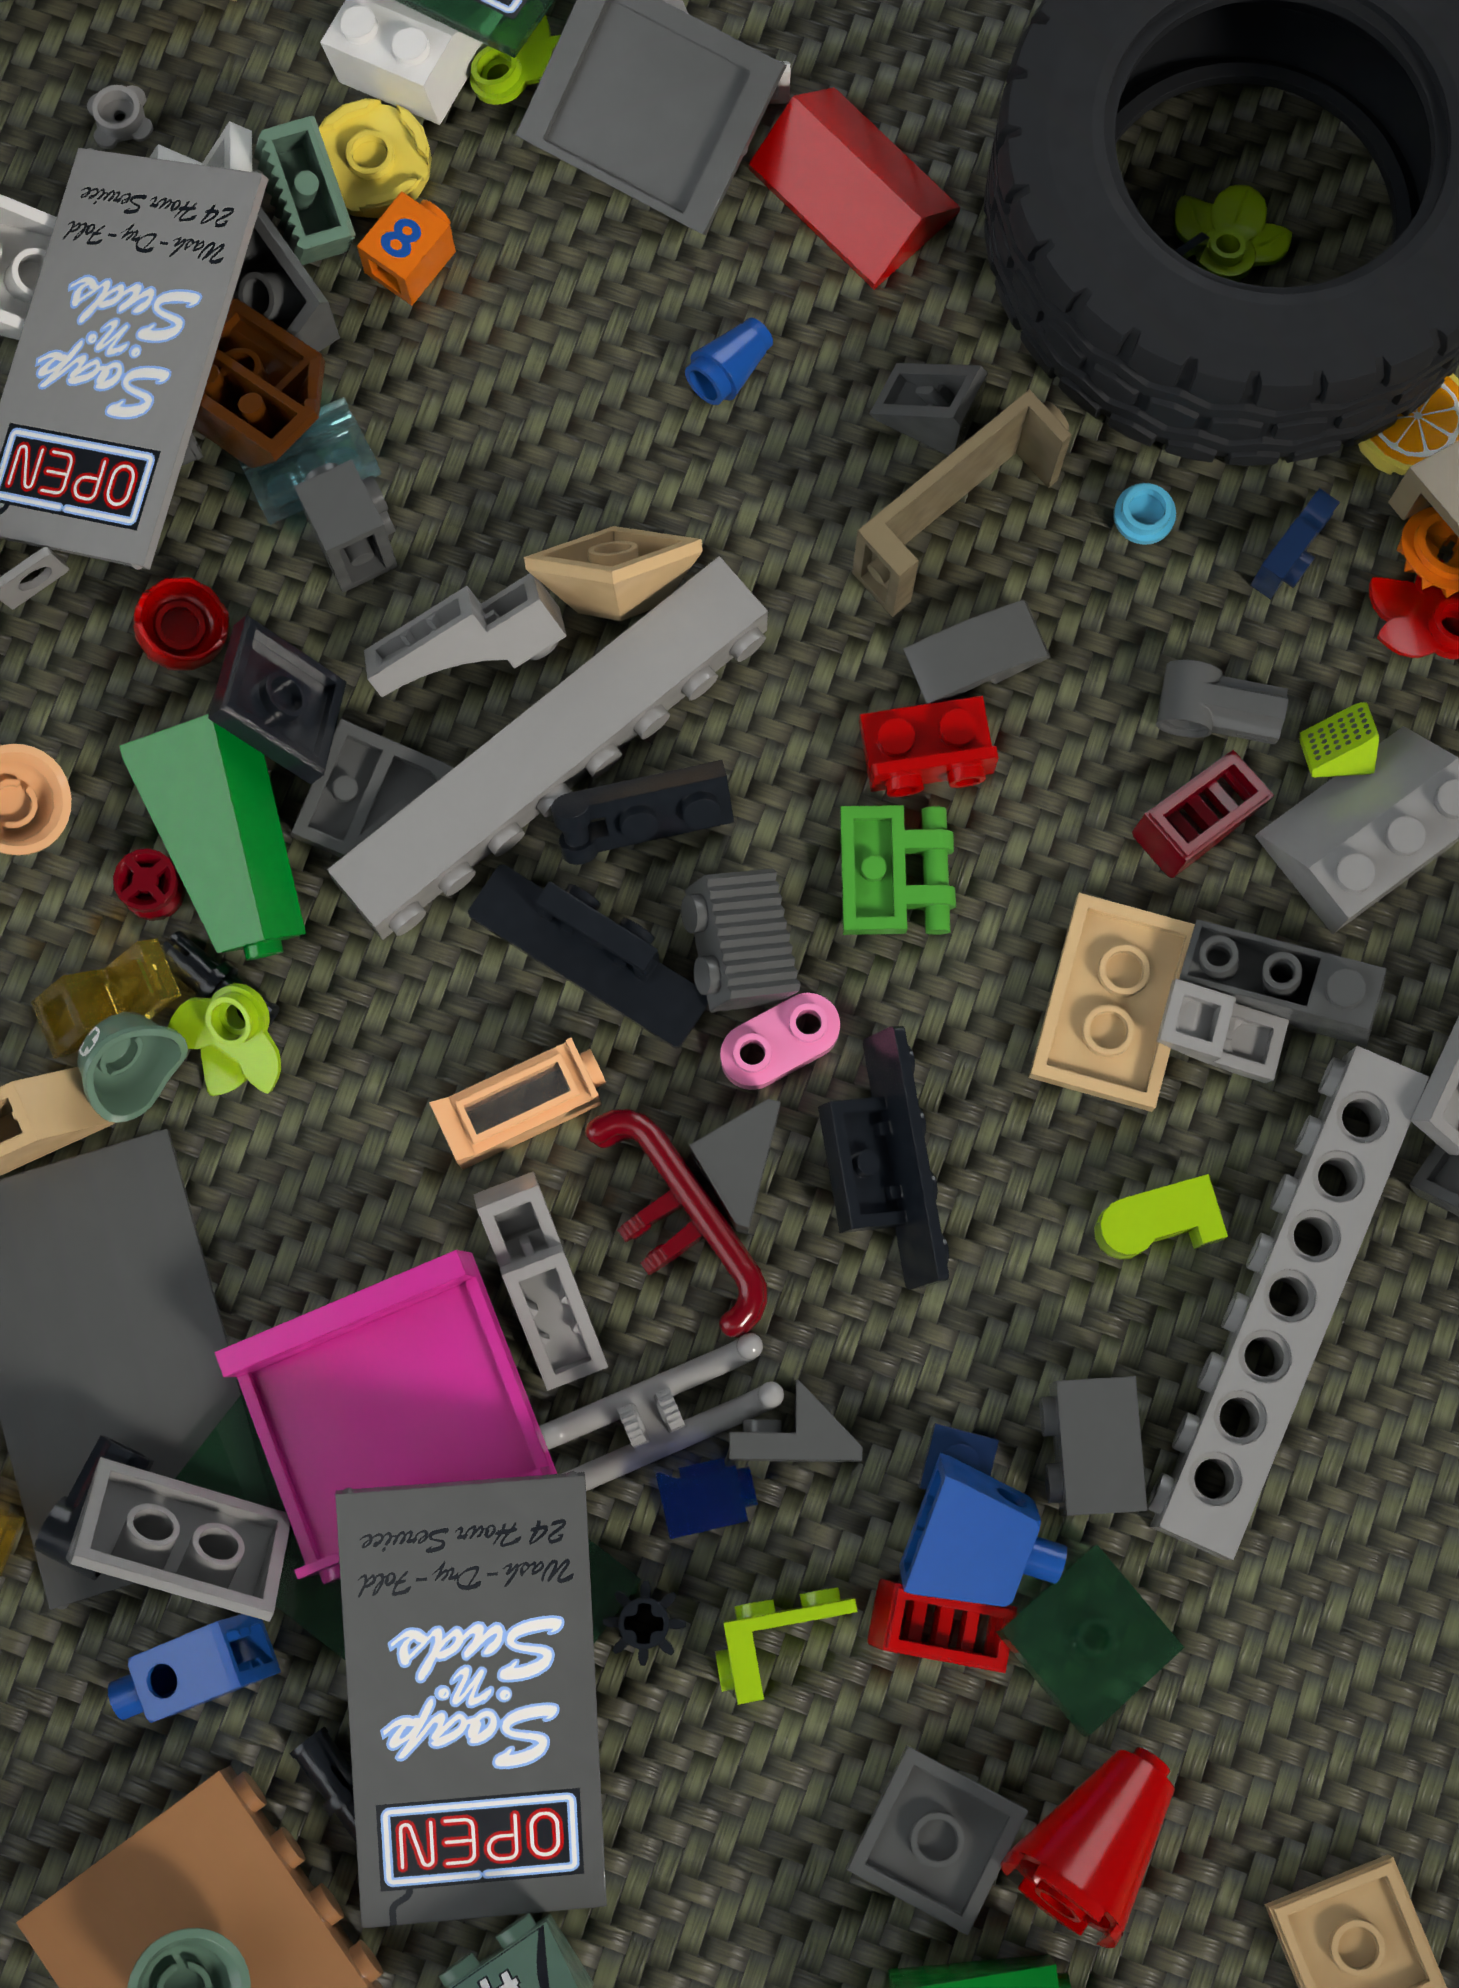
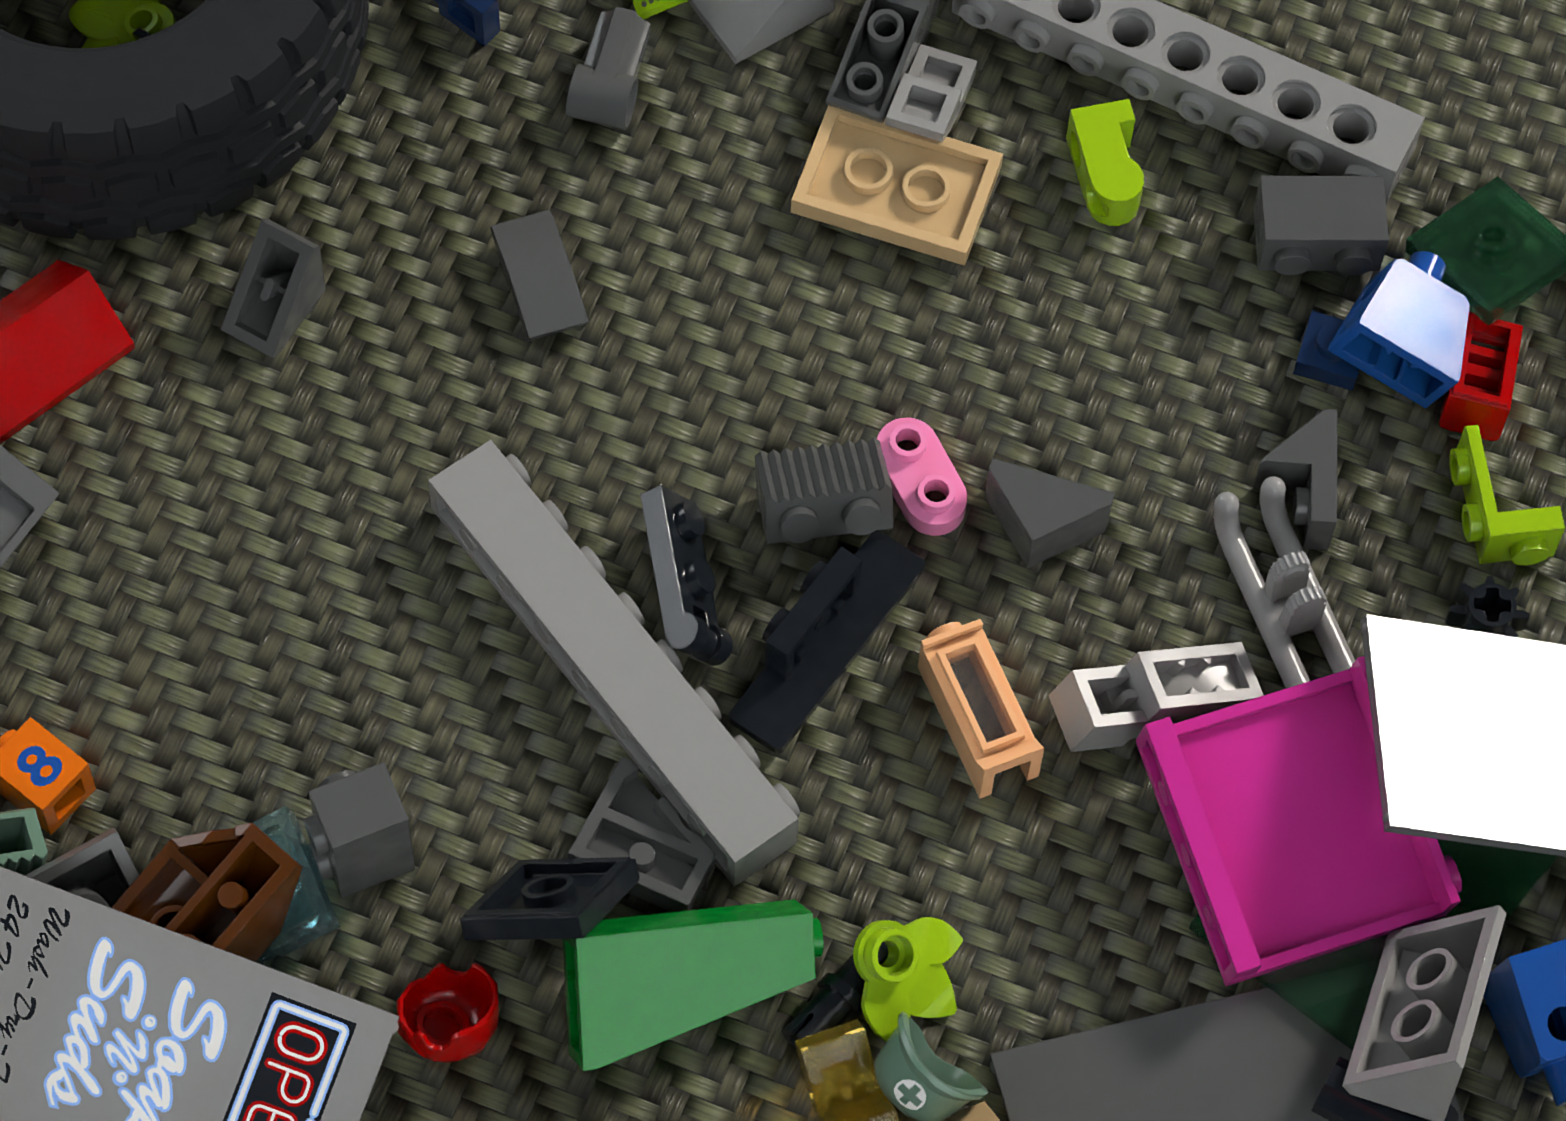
camera: 90 degrees left, 15 degrees down
(140, 874) = (731, 1043): dark red wheel -> none
(460, 630) = (484, 730): light grey slope -> none
(615, 570) = (428, 577): tan slope -> none
(688, 1194) = (1104, 540): dark red piece -> none
(706, 1497) = (1369, 560): clear blue window -> none
(728, 361) = (206, 476): blue cone -> none
(875, 870) = (754, 375): bright green plate -> none
(883, 1163) = (1045, 382): black bracket -> none
(928, 746) = (629, 326): red bracket -> none
(1025, 428) = (440, 334): dark tan panel -> none
(1144, 513) = (406, 121): medium azure plate -> none
(1172, 839) = (735, 129): dark red slope -> none

